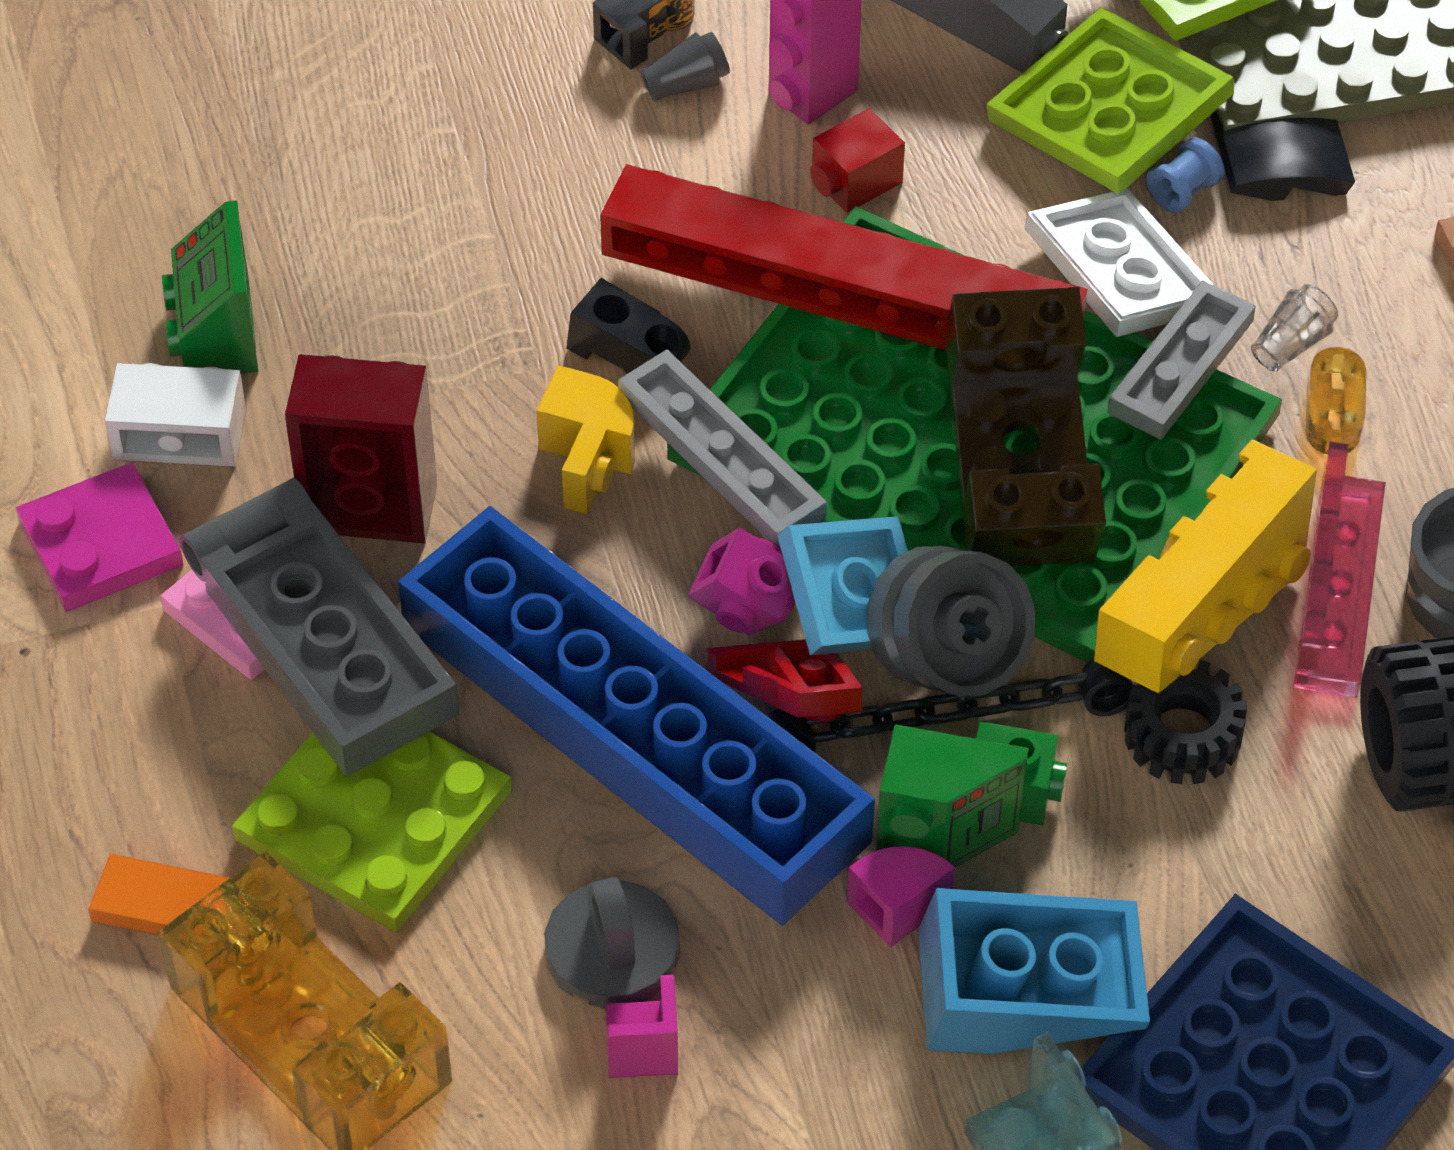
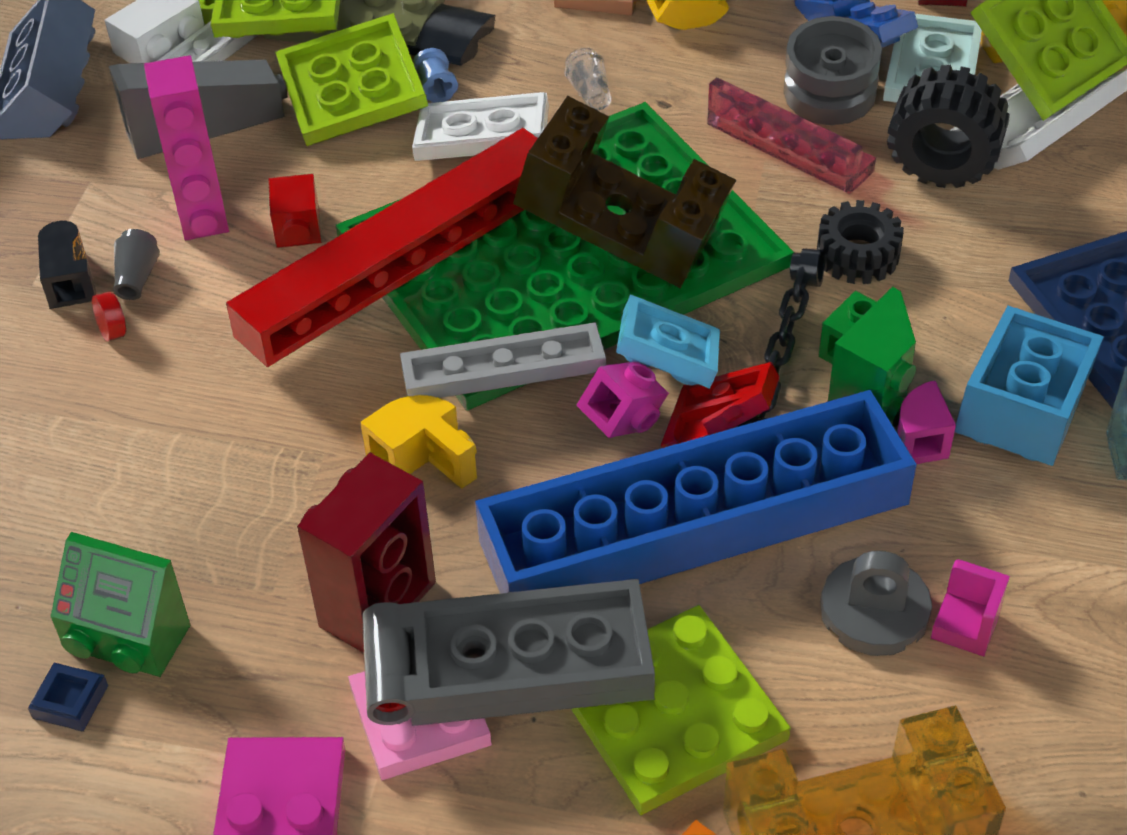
camera: 60 degrees left, 5 degrees down
(119, 321) = (68, 696): none -> dark blue tile
(175, 414) = (205, 686): white brick -> none
(595, 88) = (109, 316): none -> red tile
(622, 329) = (347, 384): black leg -> none
(951, 620) = (739, 299): dark grey wheel -> none
(1181, 359) = (619, 141): light grey plate -> none
(1211, 571) = (777, 168): yellow wedge -> none
(1323, 399) = (655, 86): clear yellow beam -> none

